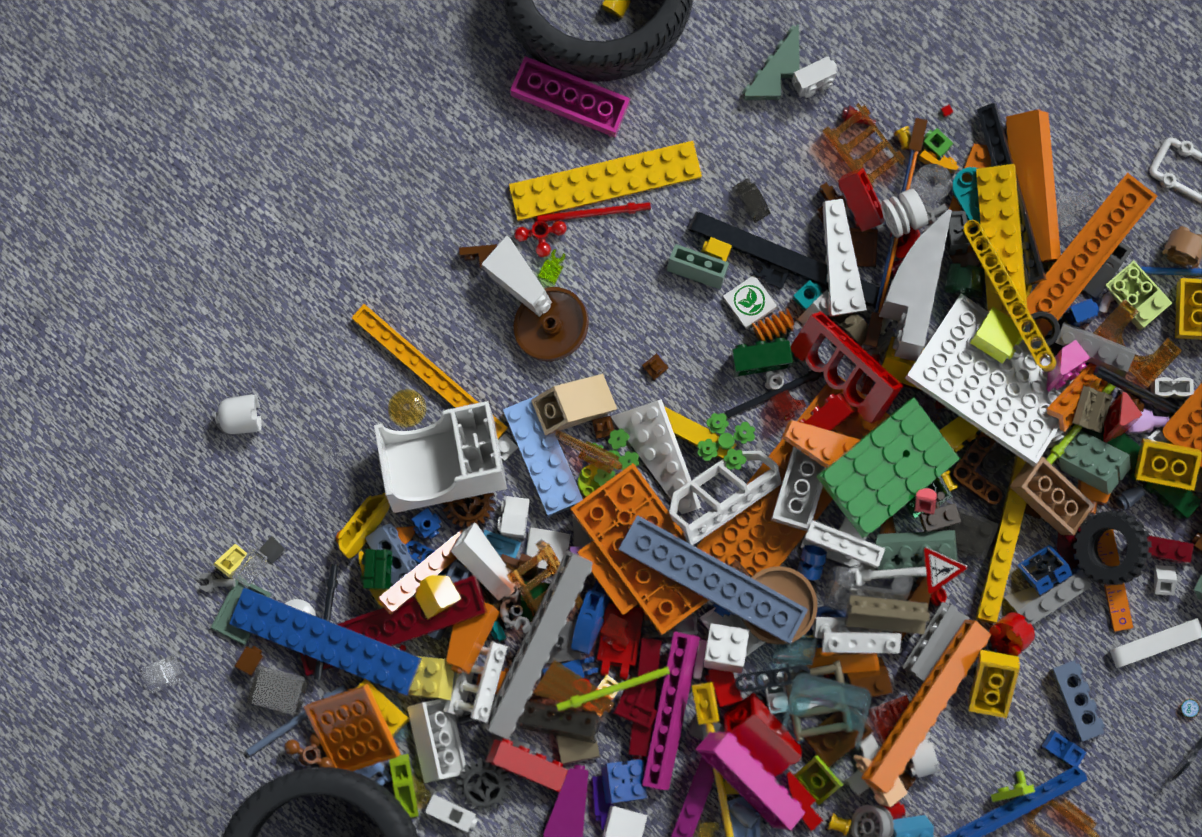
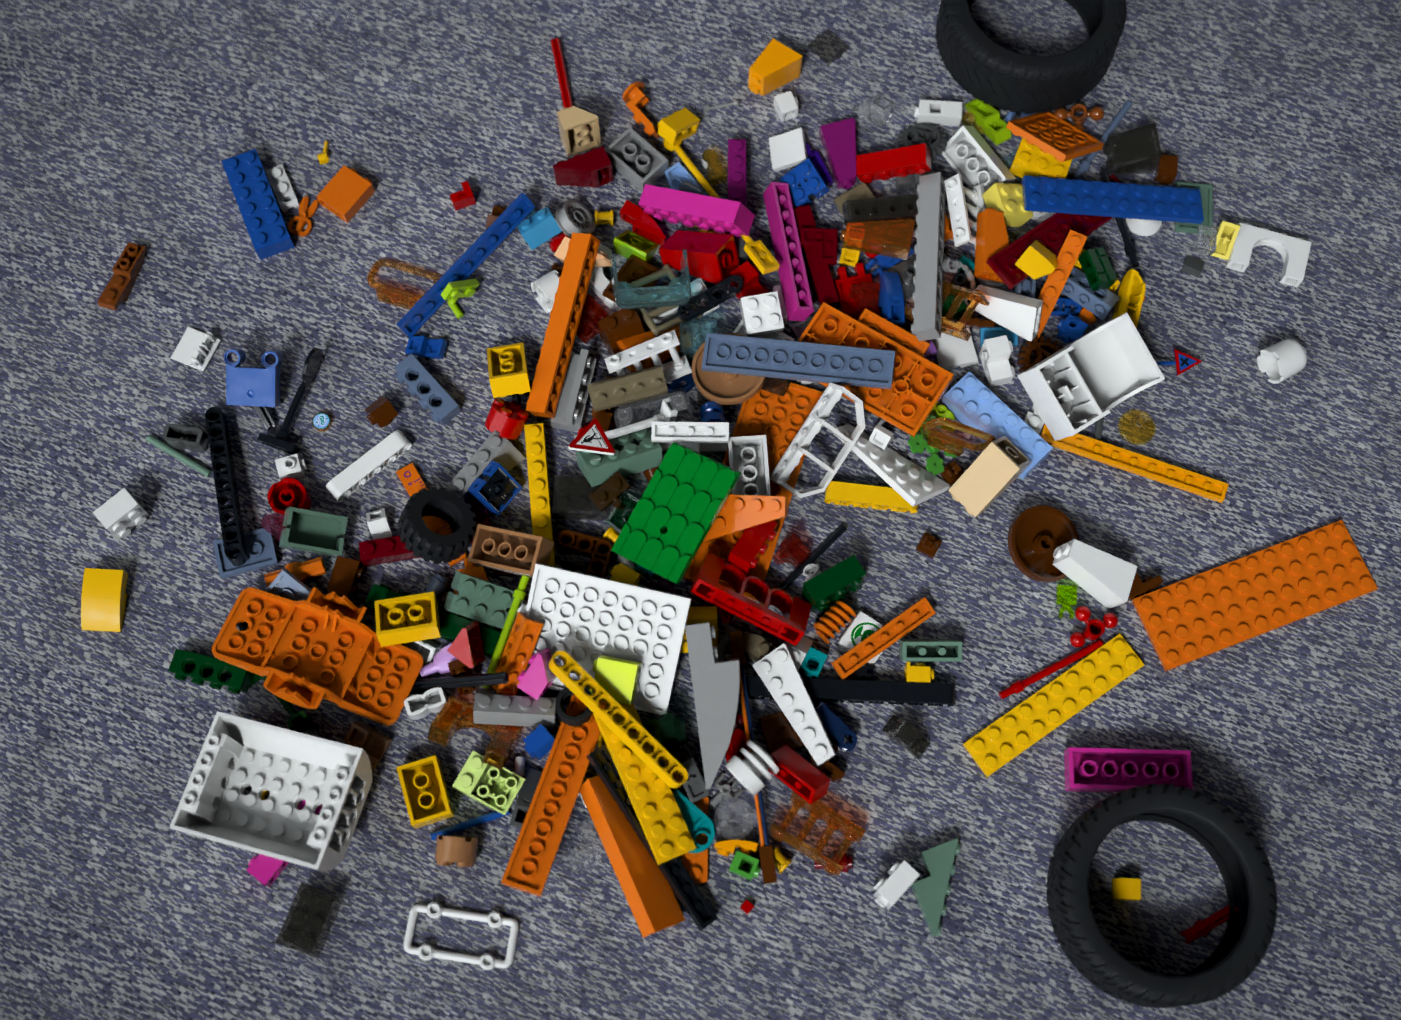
camera: 160 degrees right, 10 degrees down
(161, 673) = (1234, 130): clear brick -> none
(168, 524) = (1293, 251): none -> white arch
(213, 582) = (1229, 217): light grey bar -> none
(335, 451) = (1182, 362): none -> piece
(376, 209) = (1253, 595): none -> orange plate
(576, 701) = (874, 222): lime bar -> none
(658, 484) = (881, 436): none -> white panel
(726, 441) = (835, 495): bright green plant -> none
(736, 292) = (883, 638): none -> orange plate
(812, 233) = (835, 727): none -> dark blue piece
(926, 501) = (629, 496): coral brick -> none
(1092, 409) = (498, 645): dark tan slope -> none
(1129, 692) = (381, 412): none -> reddish brown brick

